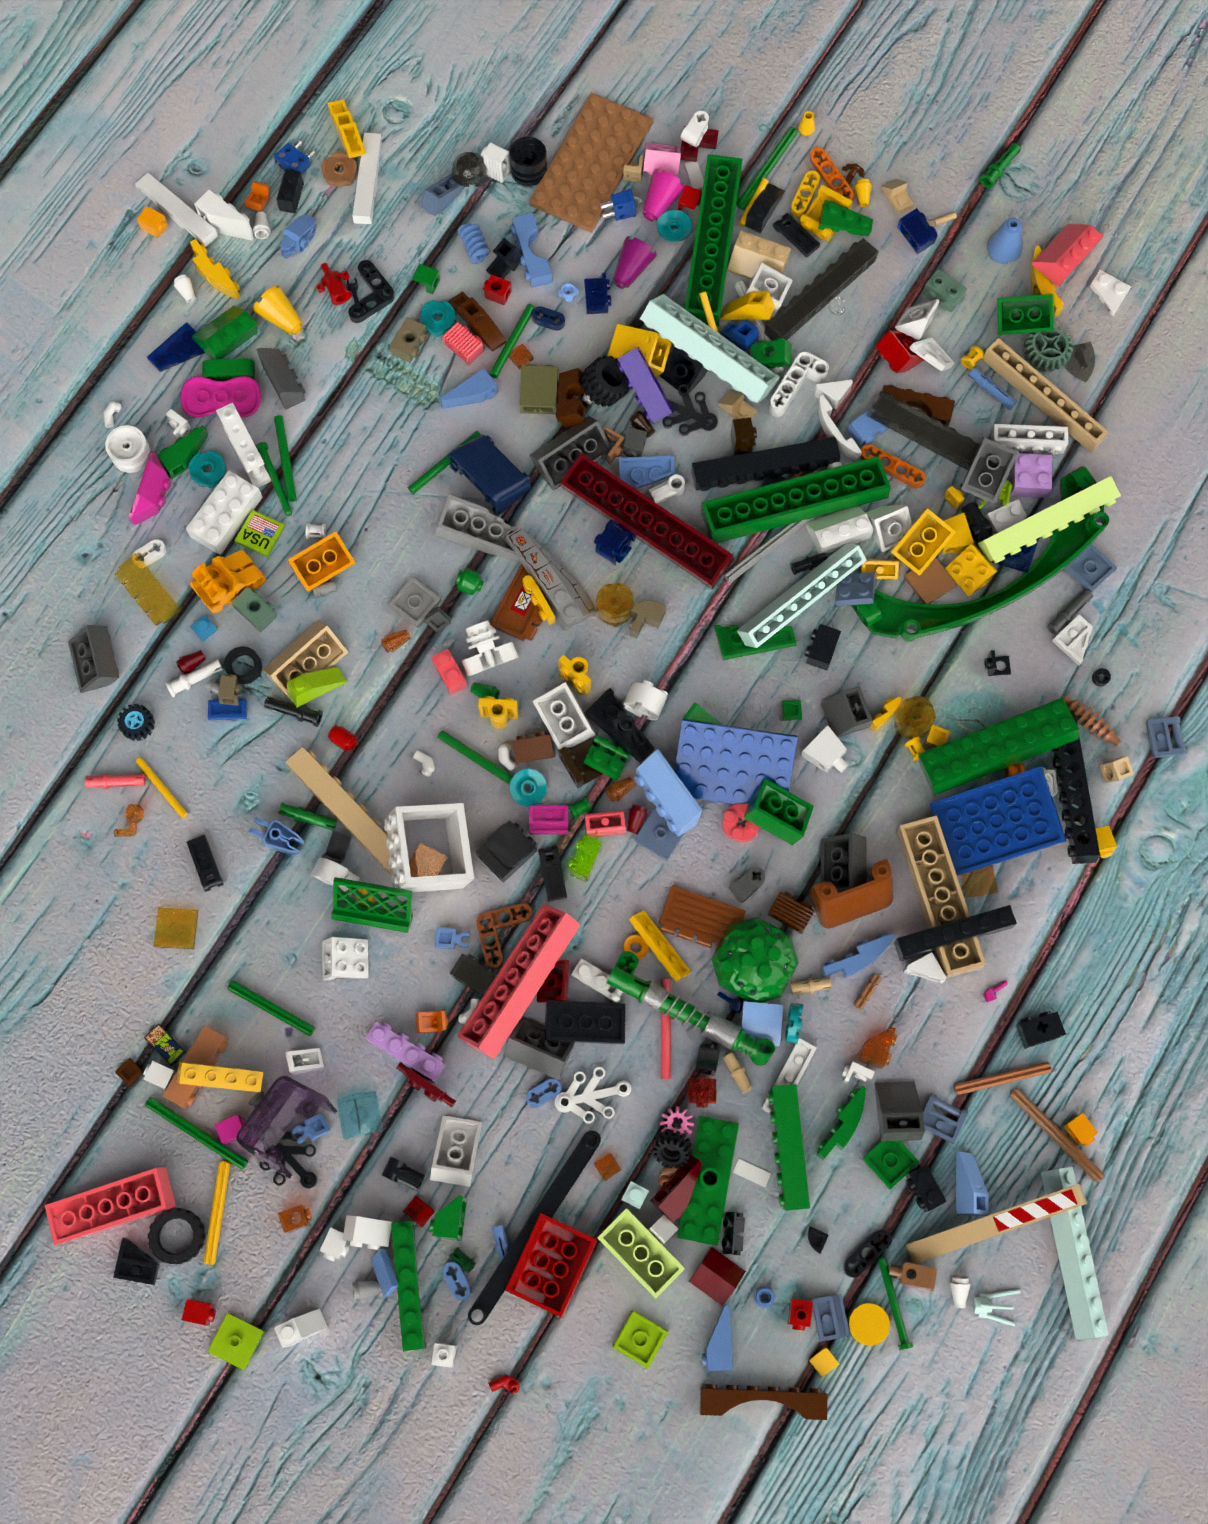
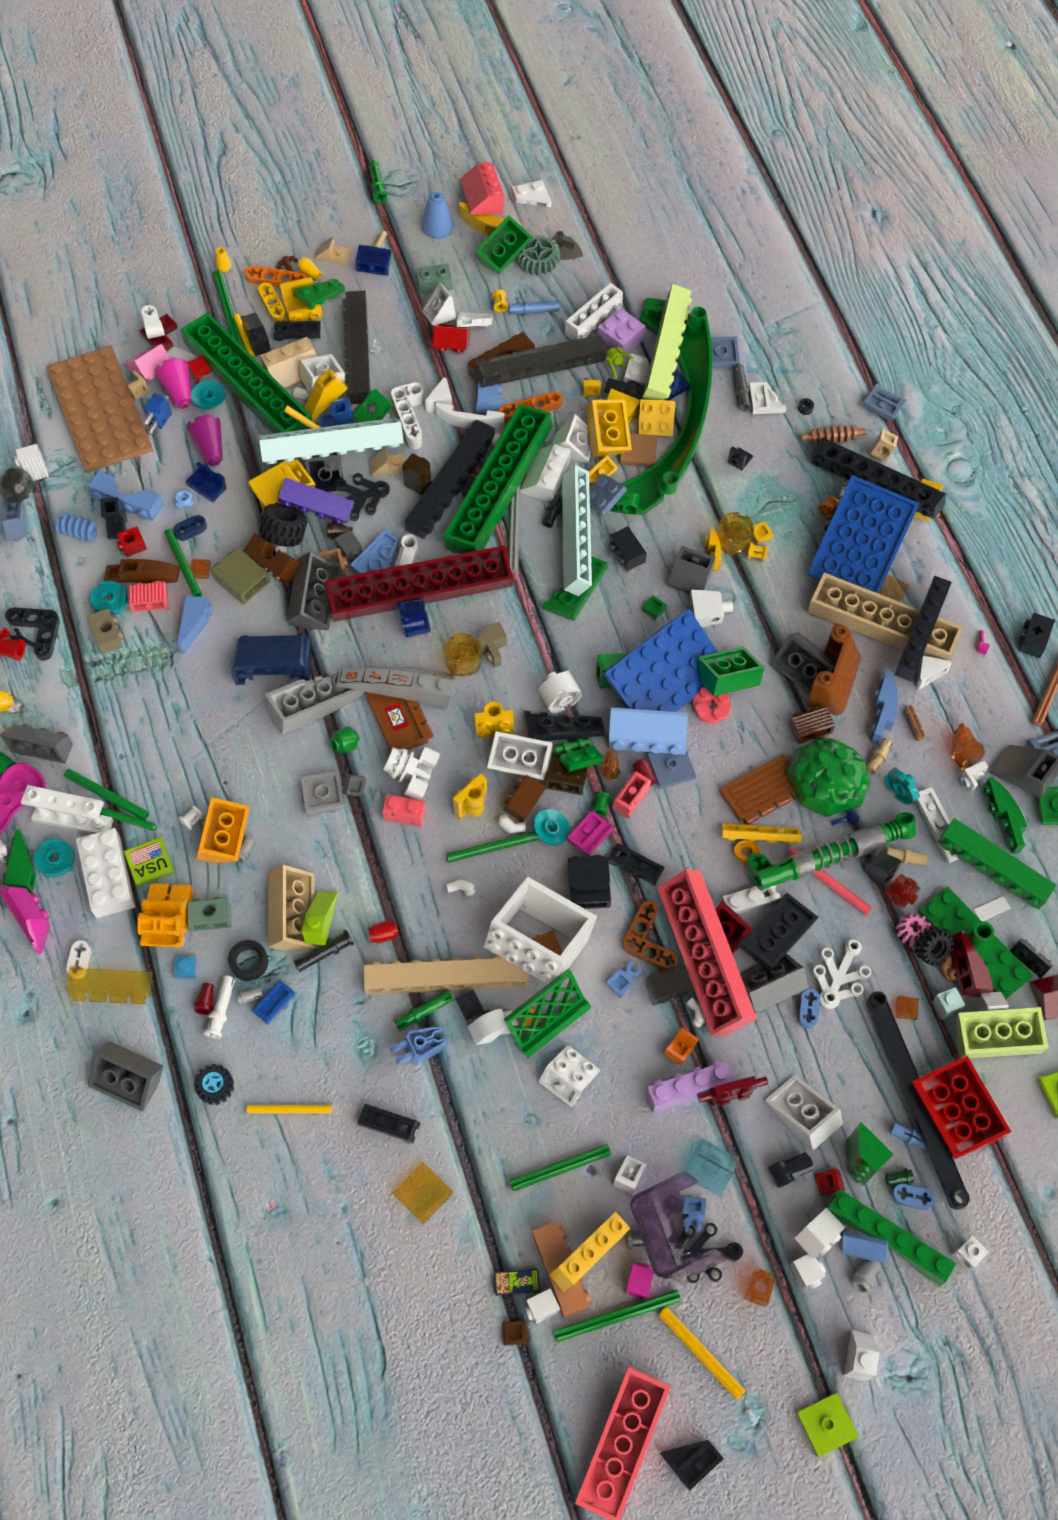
camera: 50 degrees left, 10 degrees down
(115, 781) = (242, 1149): coral pin -> none
(134, 815) = (293, 1149): clear orange plate -> none
(155, 1230) = (718, 1398): black tyre -> none
(198, 1312) = (779, 1436): red brick -> none
(229, 690) = (262, 984): dark tan brick -> none
(395, 640) = (339, 831): clear orange cone -> none
(428, 277) = (68, 578): green panel -> none
(436, 469) = (229, 688): green piece -> none
(483, 690) = (443, 799): green cone -> none
(505, 1381) = (1026, 1223): red arm -> none
(528, 161) = (55, 442): black wheel -> none
(538, 599) = (409, 701): yellow hinge -> none
(585, 859) = (646, 830): clear neon green brick -> none
(745, 886) = (765, 737): dark grey piece -> none
(763, 1021) = (880, 806): light blue slope -> none
(989, 470) = (596, 346): dark grey slope -> none
(998, 746) = (805, 498): green brick -> none
(1045, 395) = (570, 280): tan brick -> none

